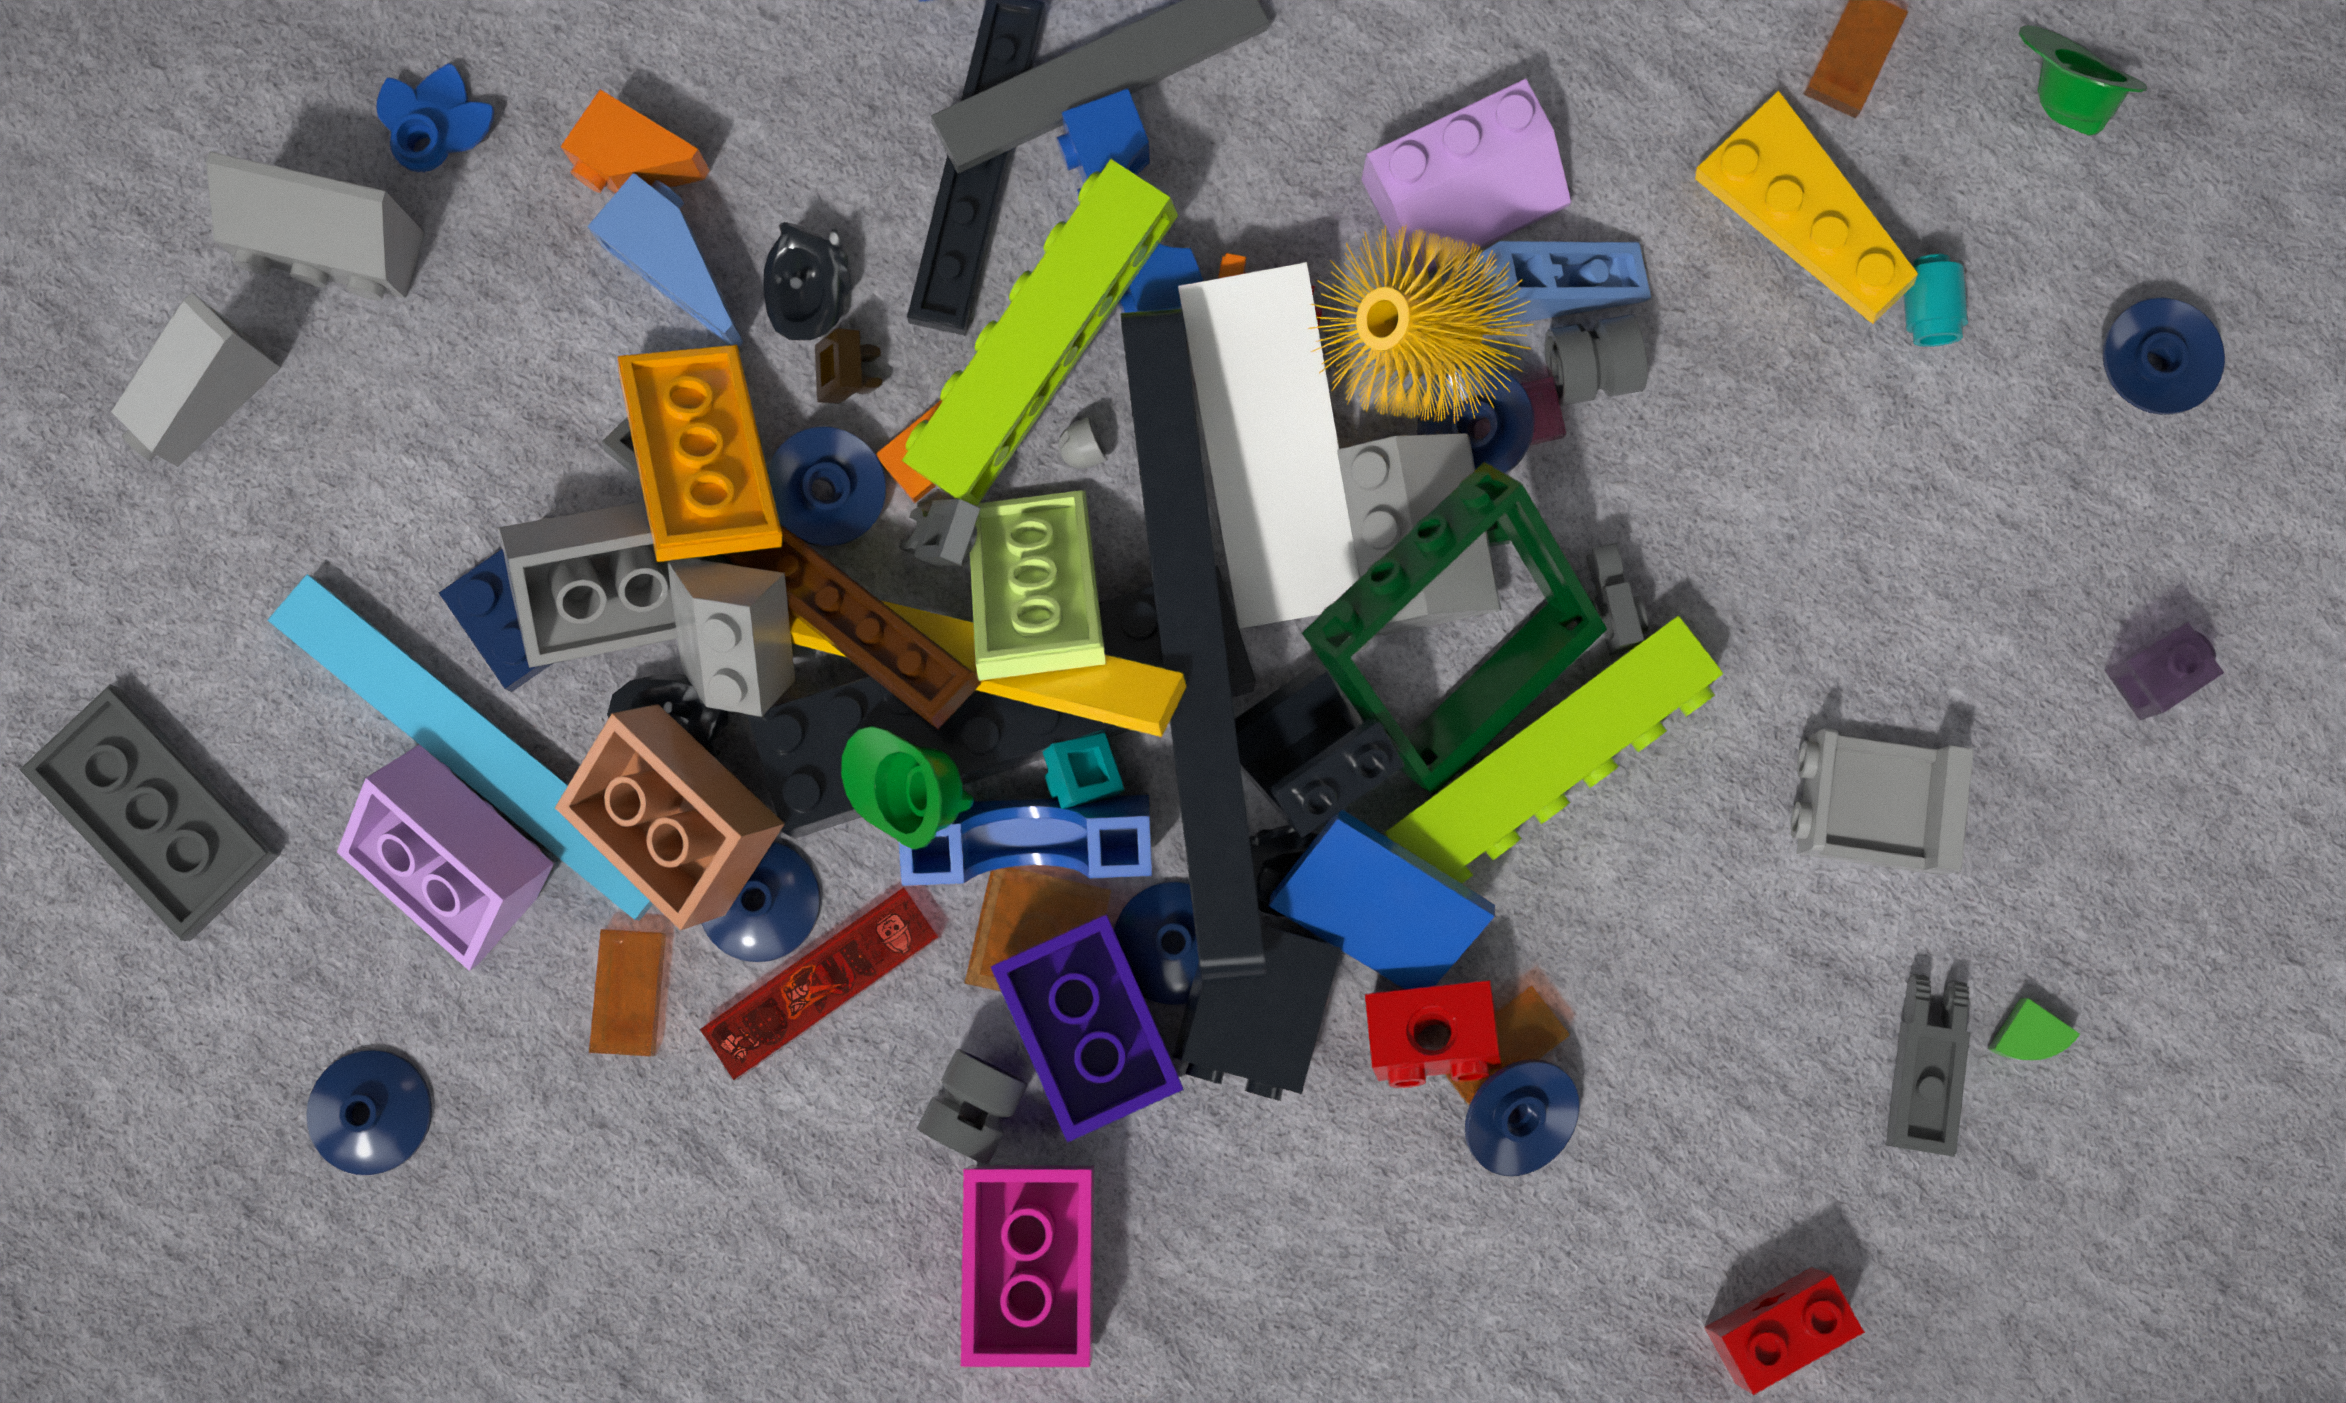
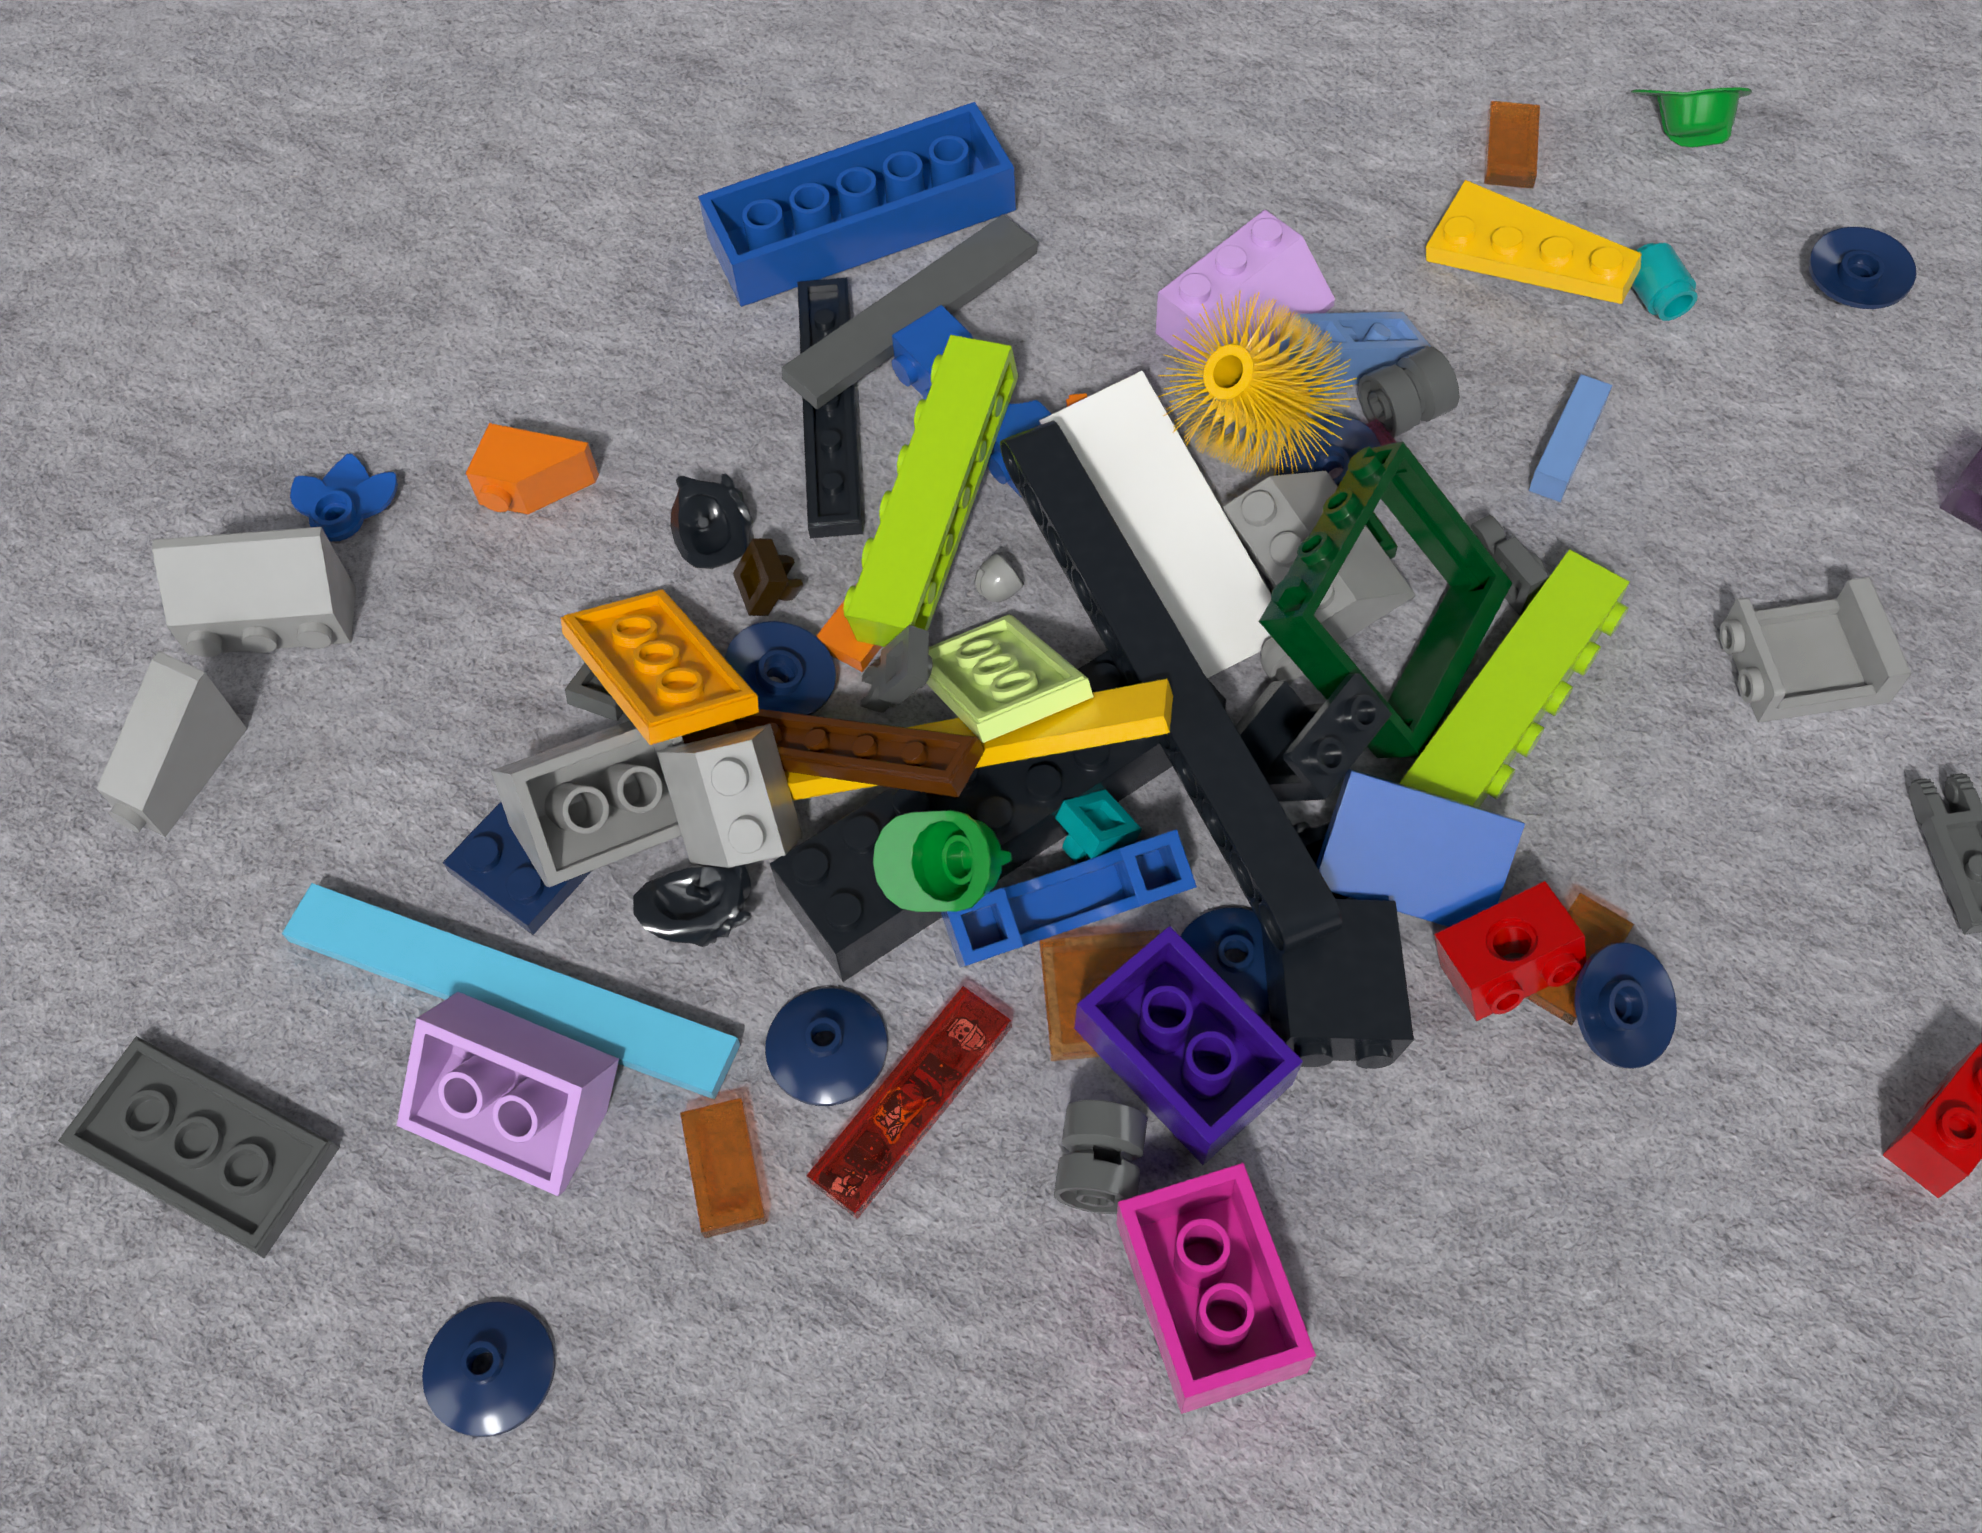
camera: 15 degrees left, 20 degrees down
(655, 241) = (572, 532): medium blue slope -> none
(668, 815) = (722, 972): nougat brick -> none
(1750, 465) = (1570, 438): none -> medium blue piece

